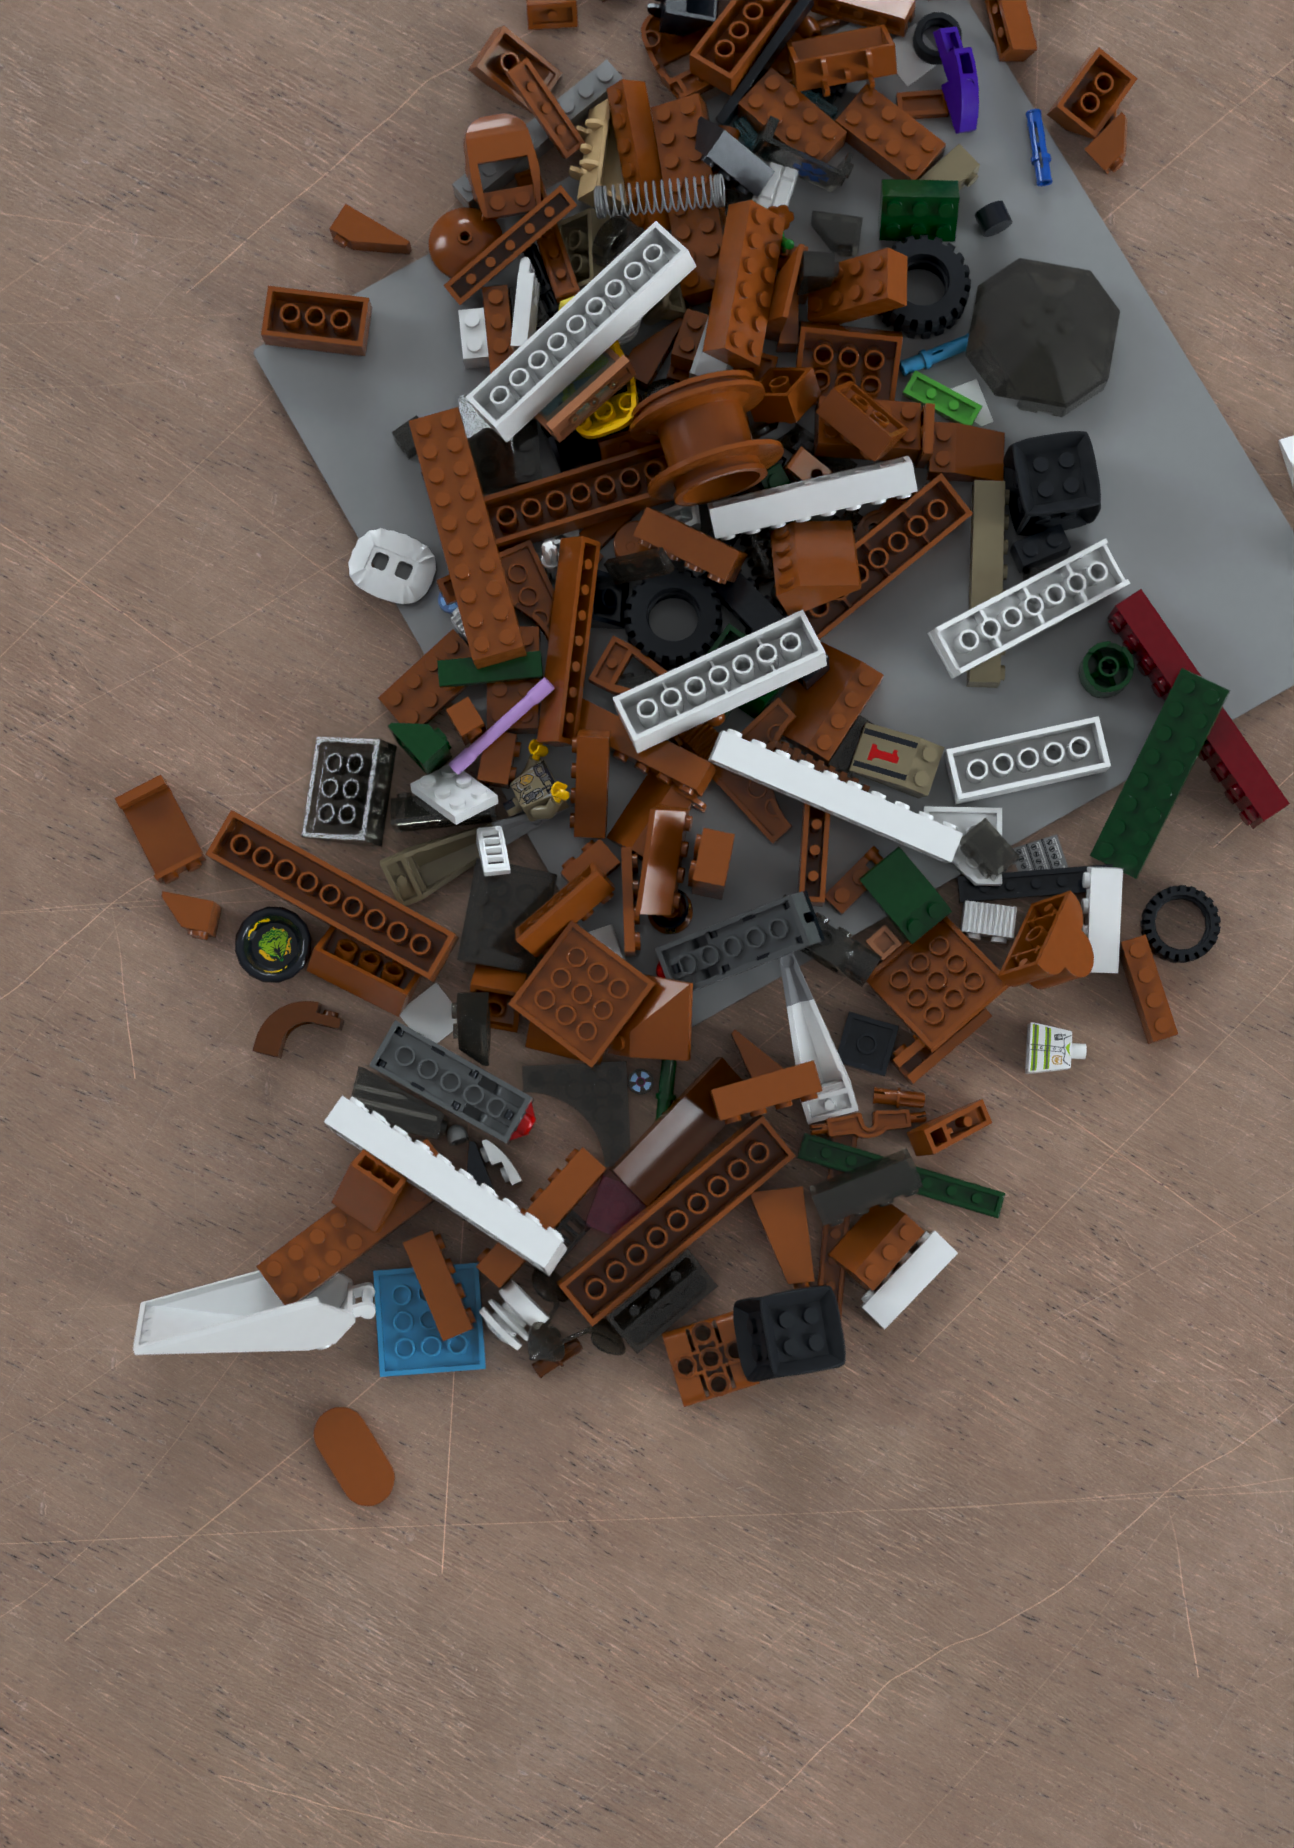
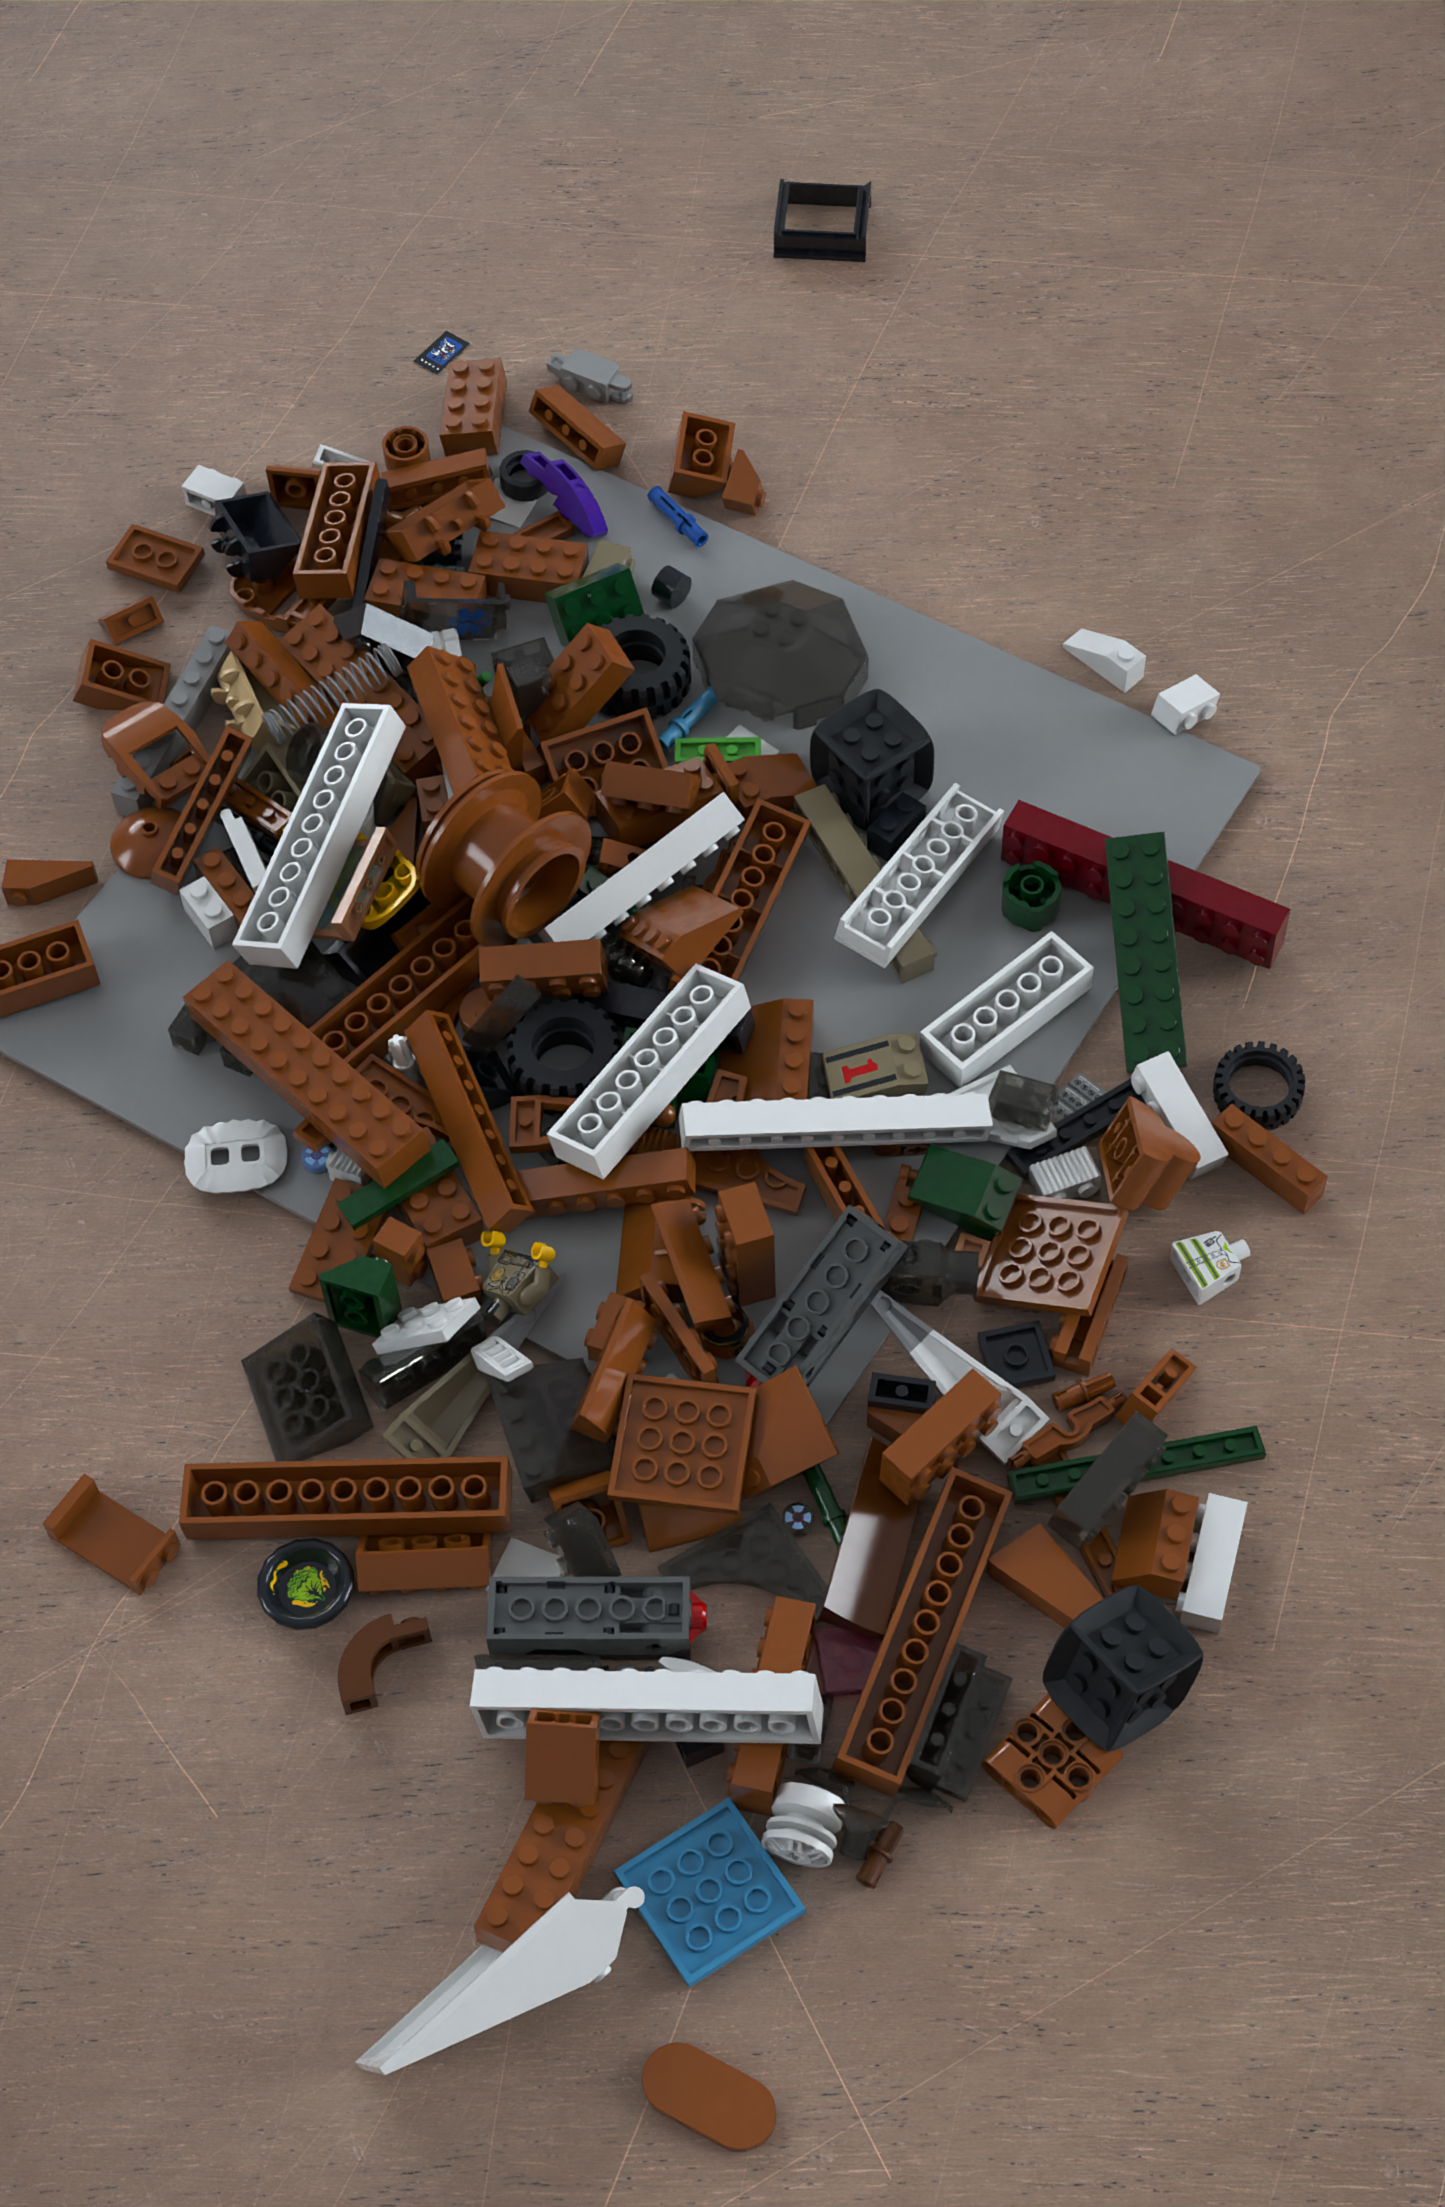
camera: 30 degrees left, 25 degrees down
(194, 914) = (194, 1594): dark orange slope -> none
(438, 1284) = (700, 1838): dark orange brick -> none
(532, 698) = (422, 1278): lavender piece -> none
(545, 108) = (172, 681): dark orange plate -> none
(591, 783) = (571, 1239): dark orange brick -> none
(763, 1034) = (901, 1393): none -> black brick

